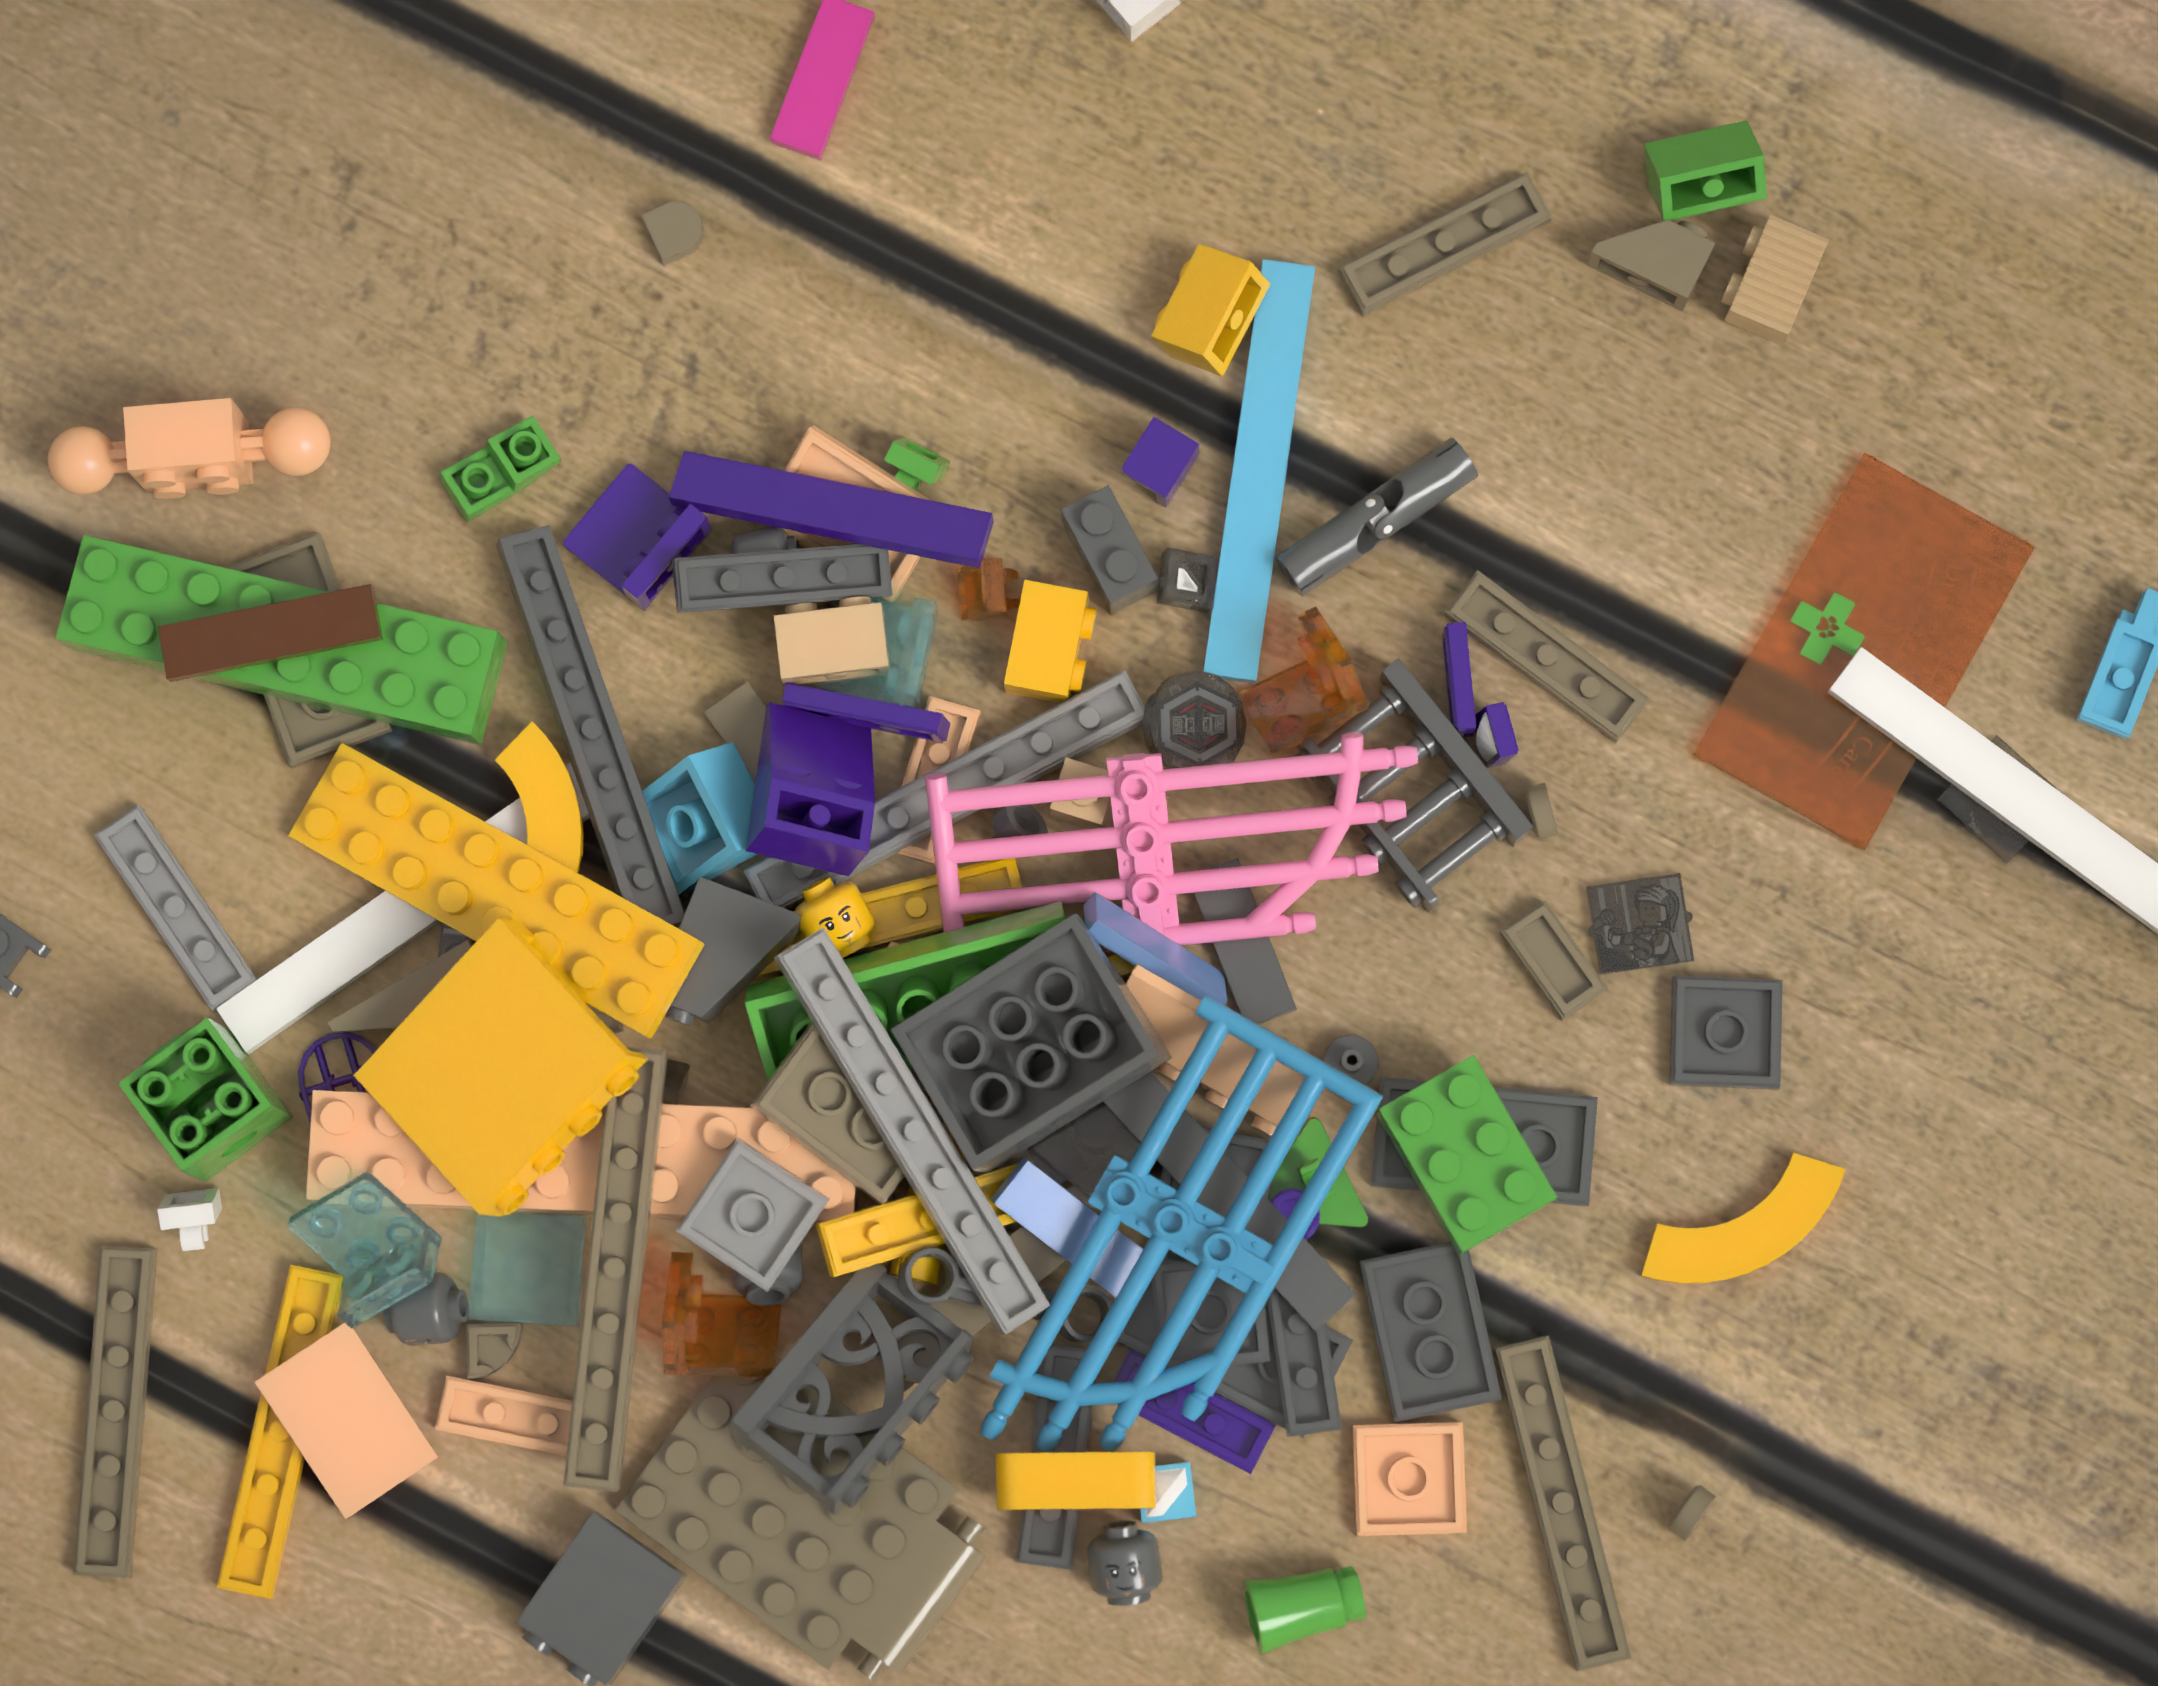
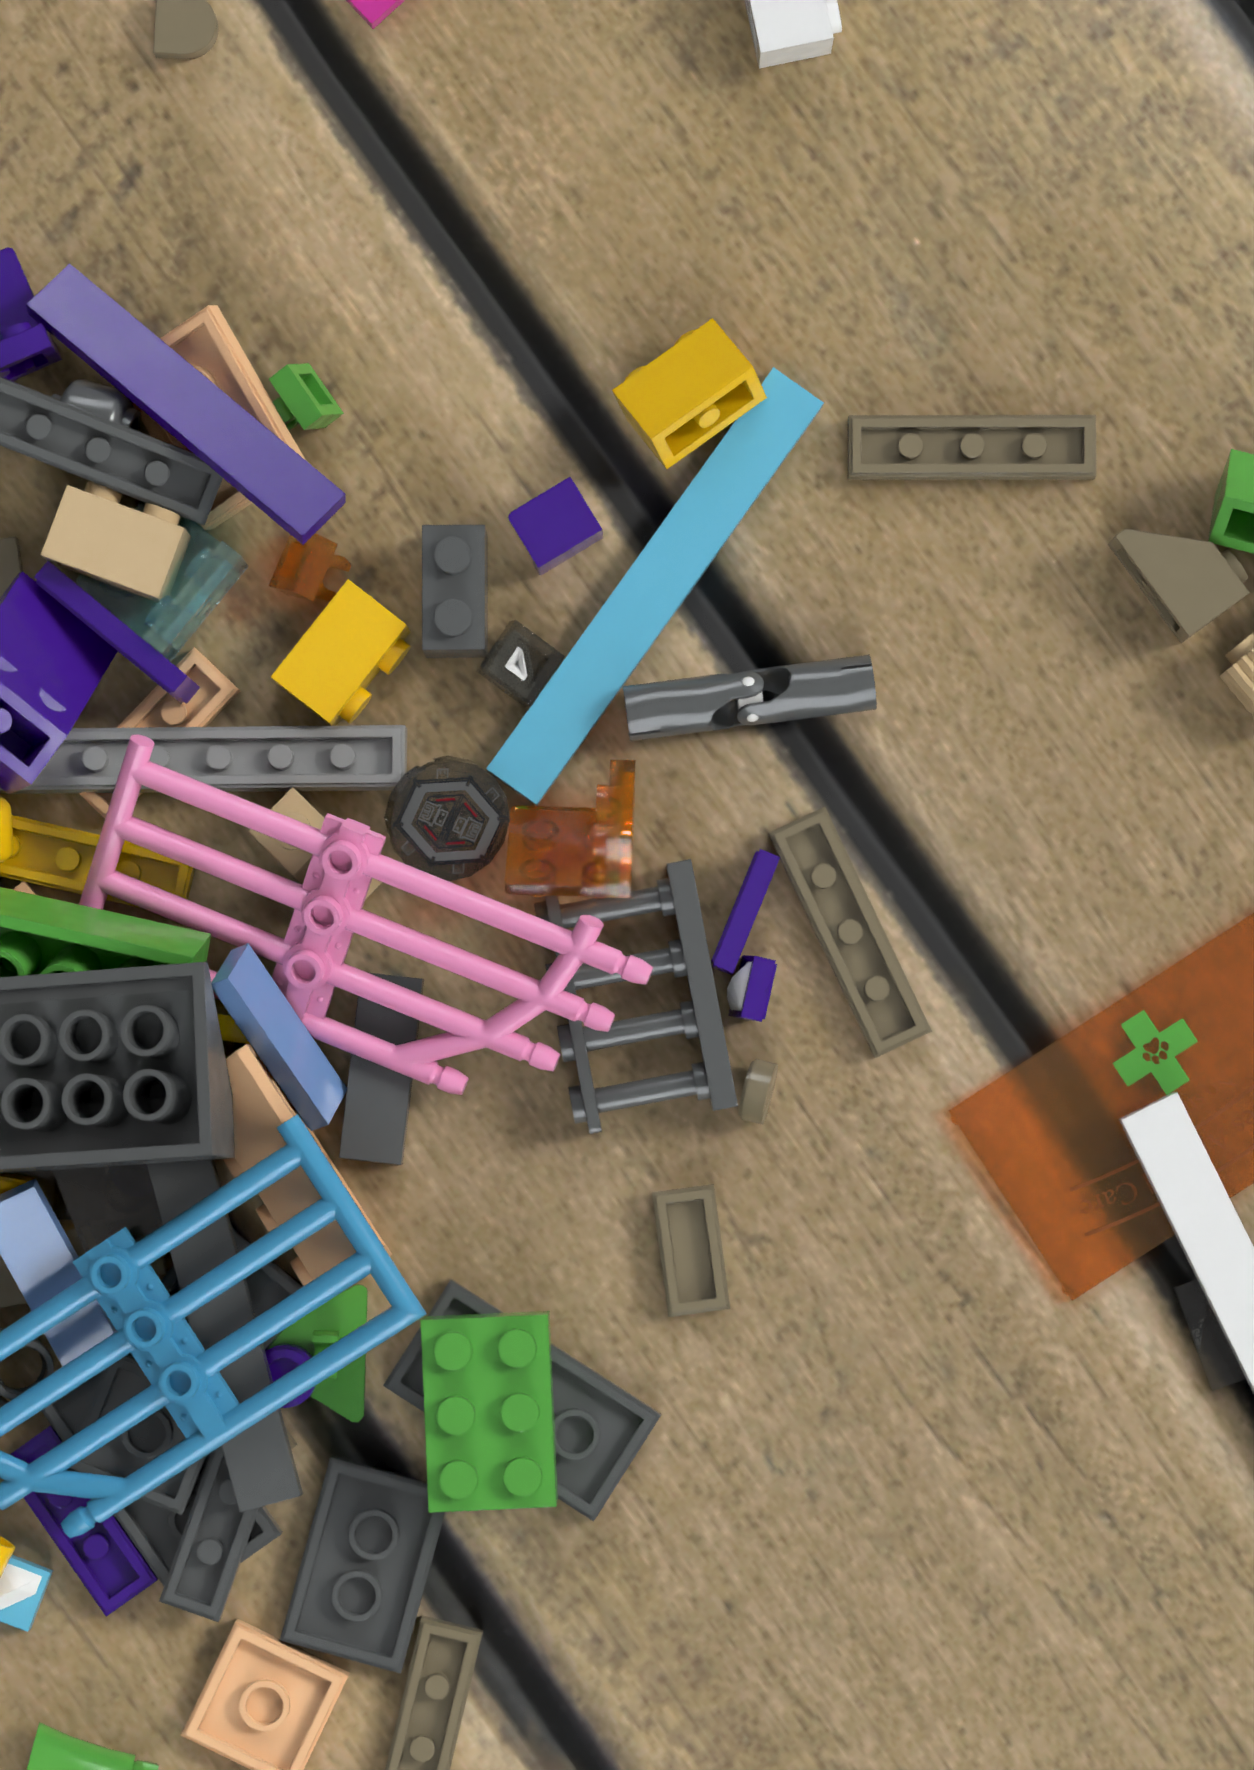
camera: 25 degrees right, 5 degrees up
(1018, 821) = (214, 831): dark grey tile -> none
(1357, 1048) = (441, 1238): dark grey tile -> none
(1640, 924) = (800, 1258): clear smoke piece -> none
(1726, 1032) = (828, 1416): dark grey tile -> none
(1751, 1239) = (742, 1642): yellow tile -> none

